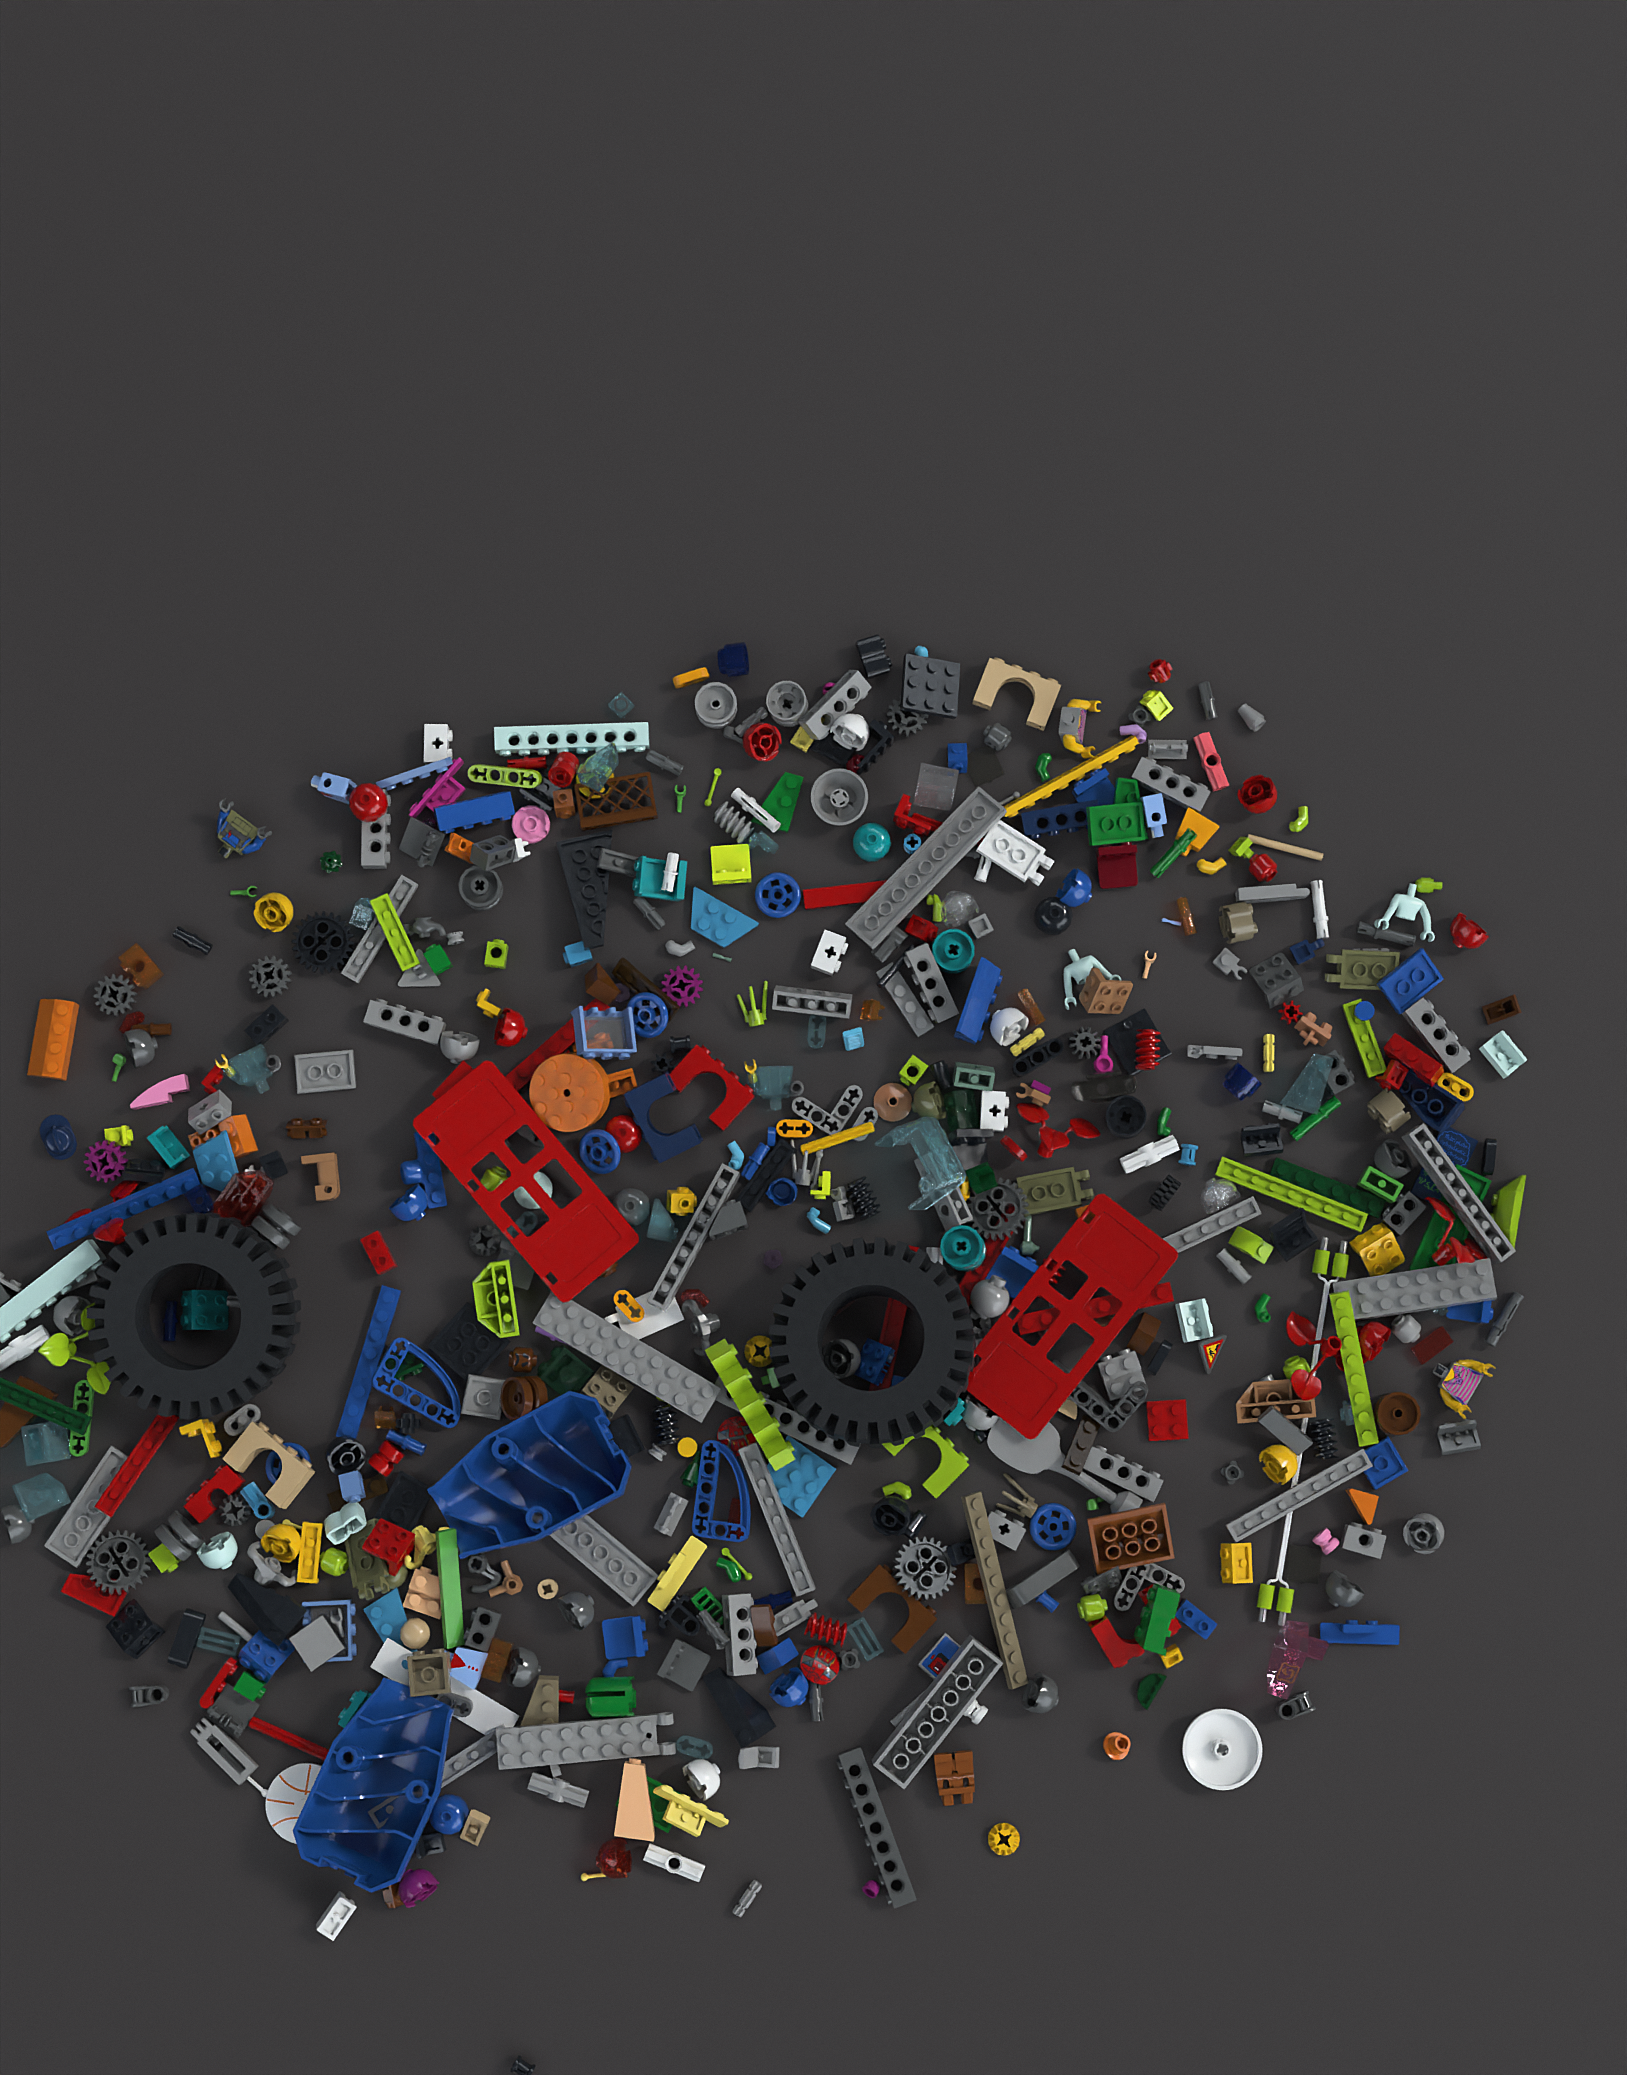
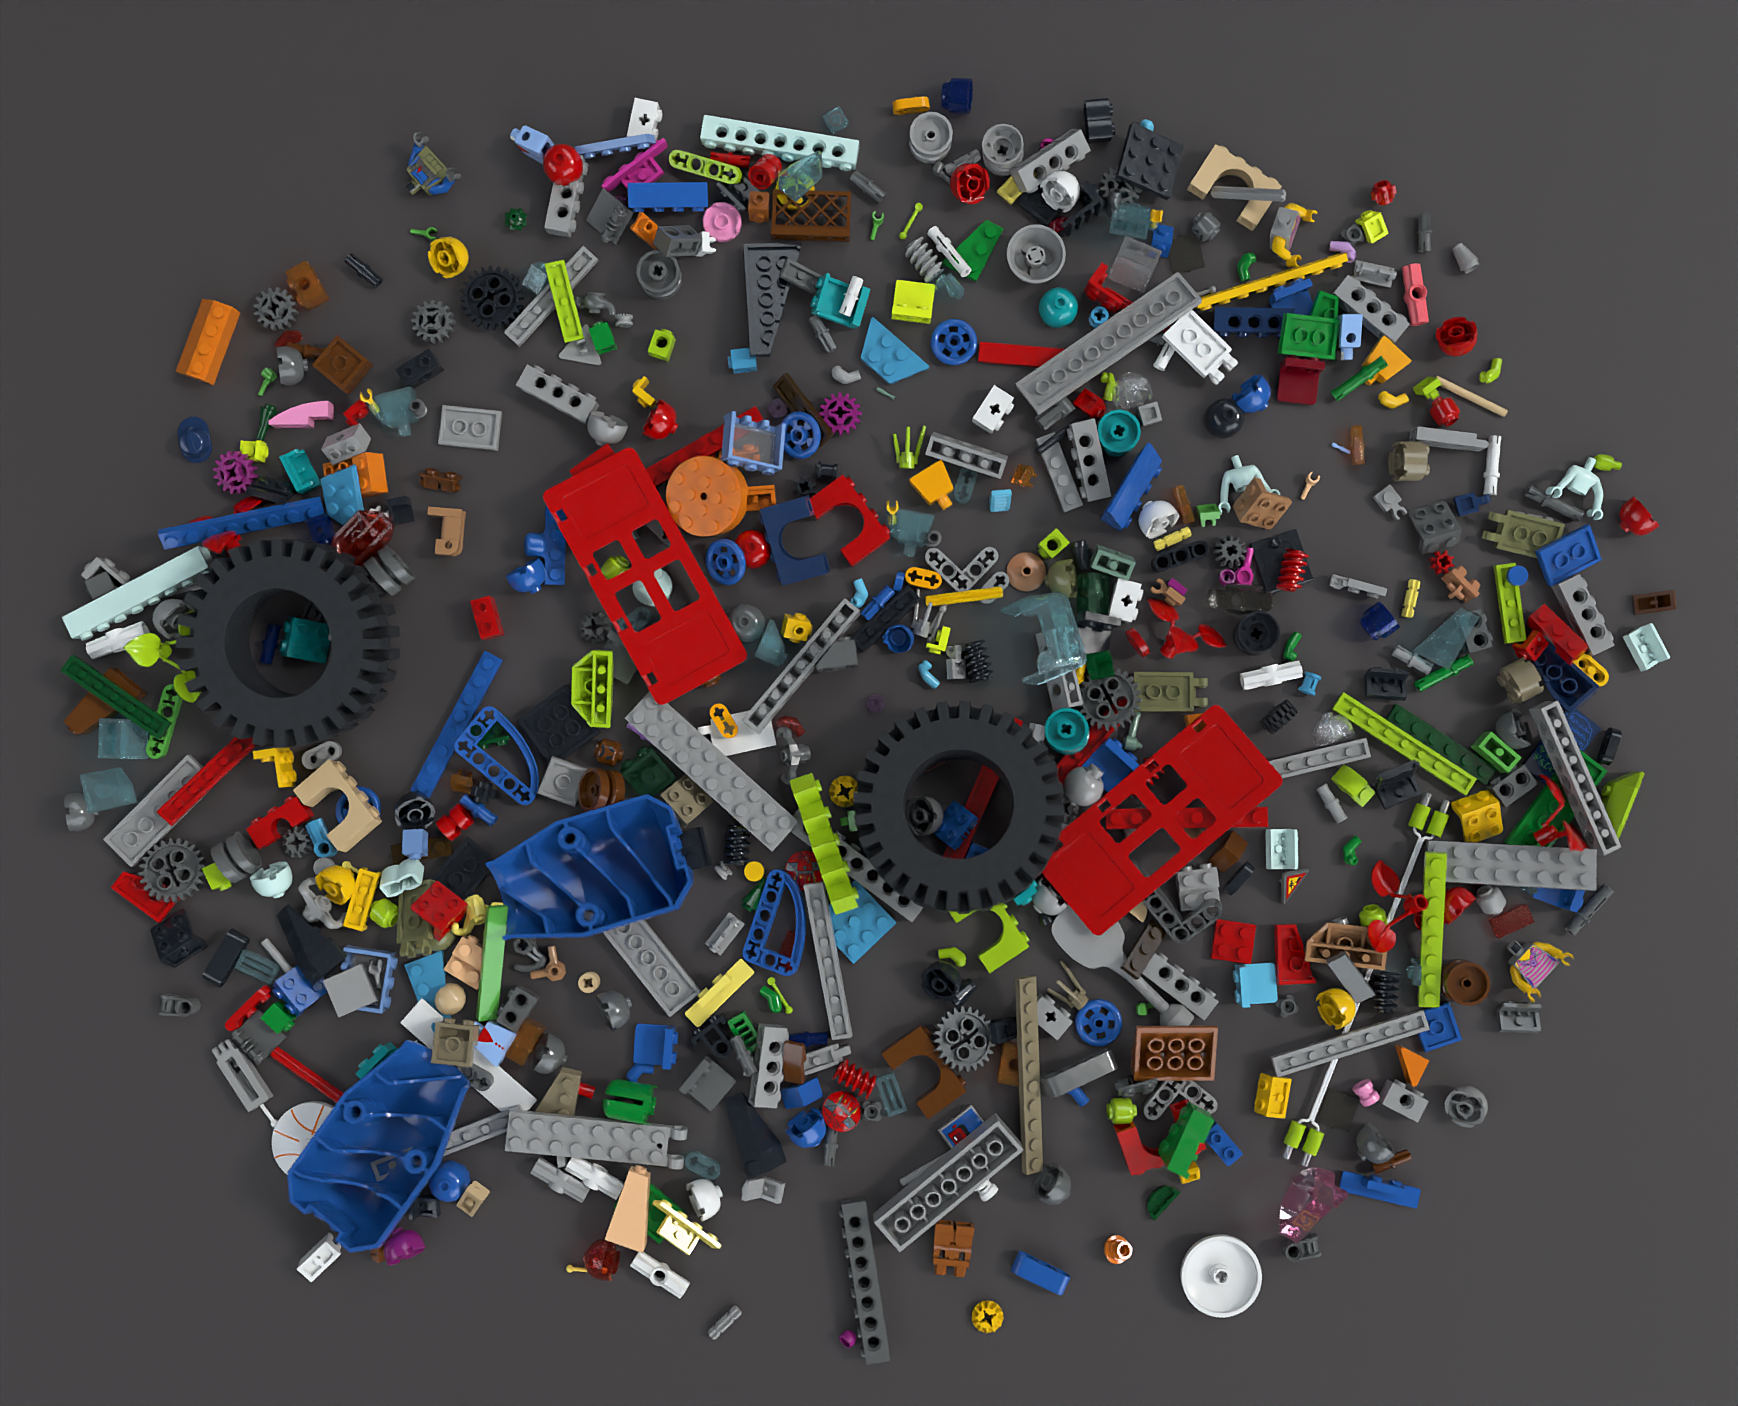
camera: 15 degrees right, 5 degrees up
(125, 1097) = (266, 413): none -> dark green cone
(191, 1036) = (342, 365): none -> reddish brown container
(591, 1779) = (595, 1177): none -> white piece
(600, 985) = (759, 396): reddish brown slope -> none
(786, 1036) = (934, 485): none -> light orange torso
(922, 745) = (1130, 219): none -> clear light blue torso
(1030, 699) = (1248, 193): none -> light grey axle
(1046, 1784) = (1040, 1273): none -> blue beam
(1055, 1010) = (1208, 512): none -> bright green tile
(1091, 1068) = (1231, 577): none -> magenta hinge
(1196, 1457) = (1255, 984): none -> medium azure bracket
(1223, 1422) = (1290, 957): none -> red wing
(1365, 1603) = (1399, 1158): none -> reddish brown axle

